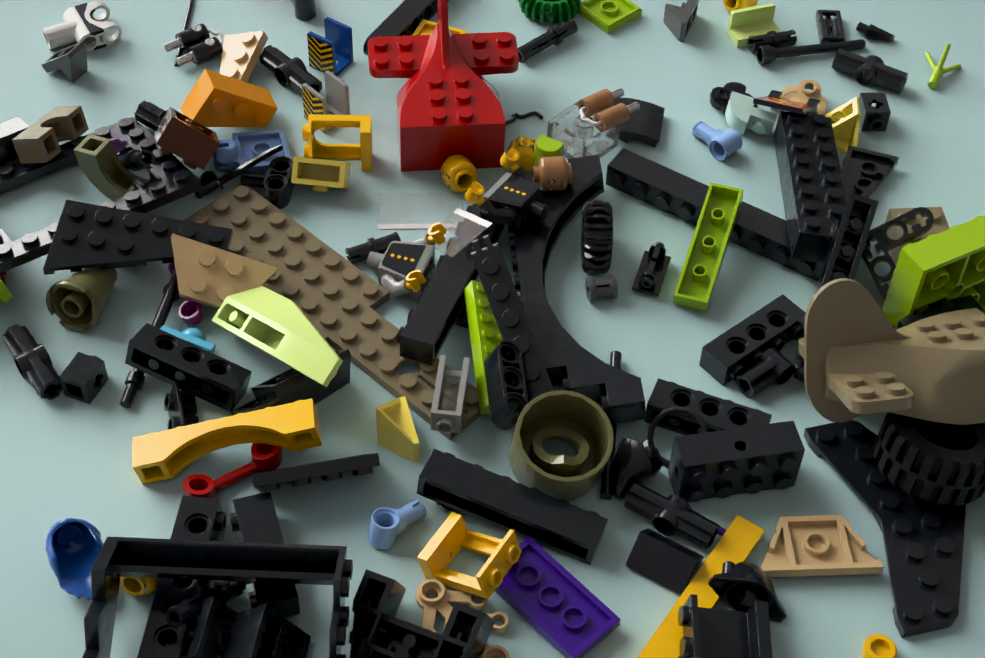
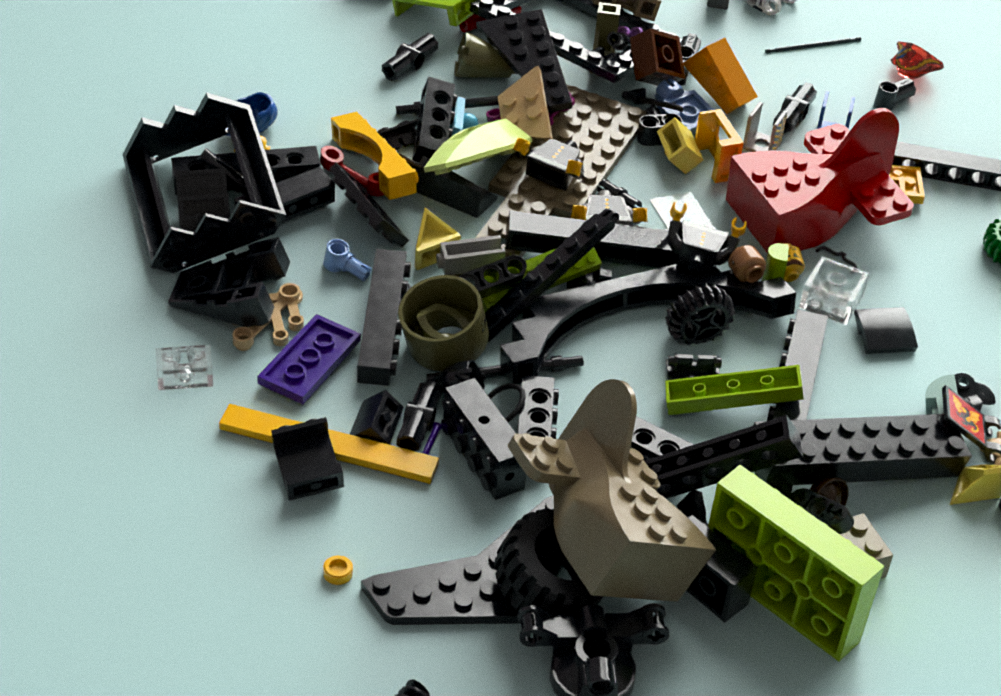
camera: 70 degrees right, 5 degrees down
(84, 377) = (407, 82): black brick -> none
(198, 43) = (792, 53): black piece -> none
(241, 54) = (788, 77): wing -> none
(320, 276) = (552, 161): none -> torso
(449, 541) = (327, 298): yellow panel -> none
(458, 173) = (725, 221): yellow head -> none
(552, 37) = (983, 263): black pin -> none
(595, 288) = (652, 337): dark grey bush -> none
(612, 116) = (854, 283): medium nougat piece -> none
(720, 143) = (897, 391): light blue pin -> none
(744, 584) = (363, 467): black hat -> none
(817, 548) = (426, 514): tan wing -> none
(865, 170) = (919, 503): black wing -> none

